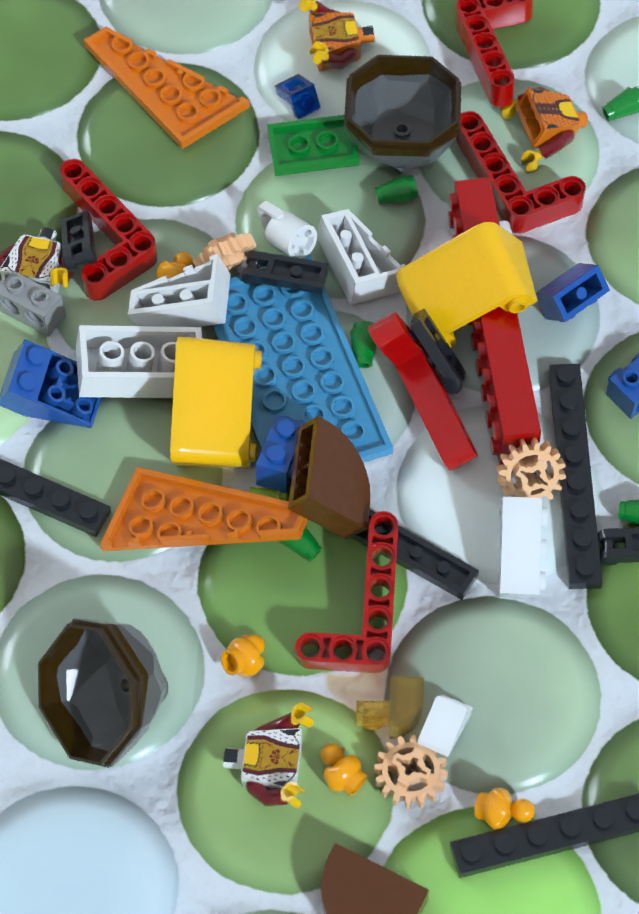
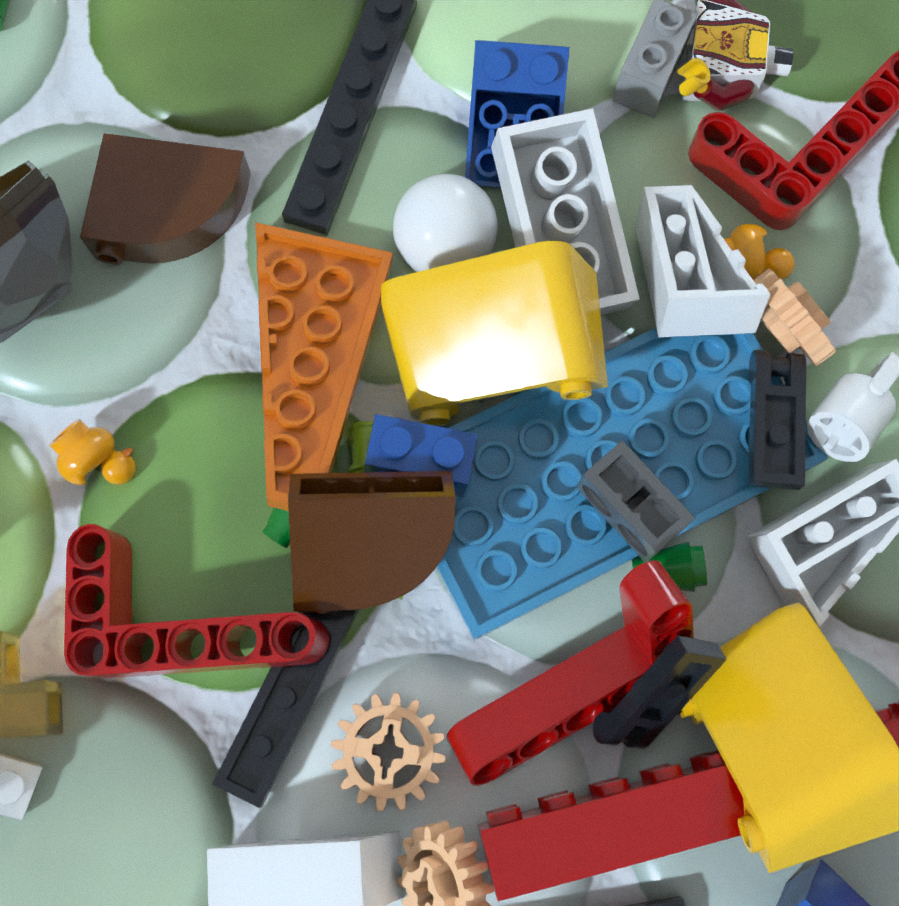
camera: 80 degrees right, 15 degrees up
(65, 590) = (161, 199): none -> reddish brown brick
(78, 240) = (775, 99): black plate -> none
(122, 437) = (444, 222): none -> white piece
(327, 345) = (634, 501): none -> dark grey brick
(454, 514) = (365, 748): none -> light nougat gear

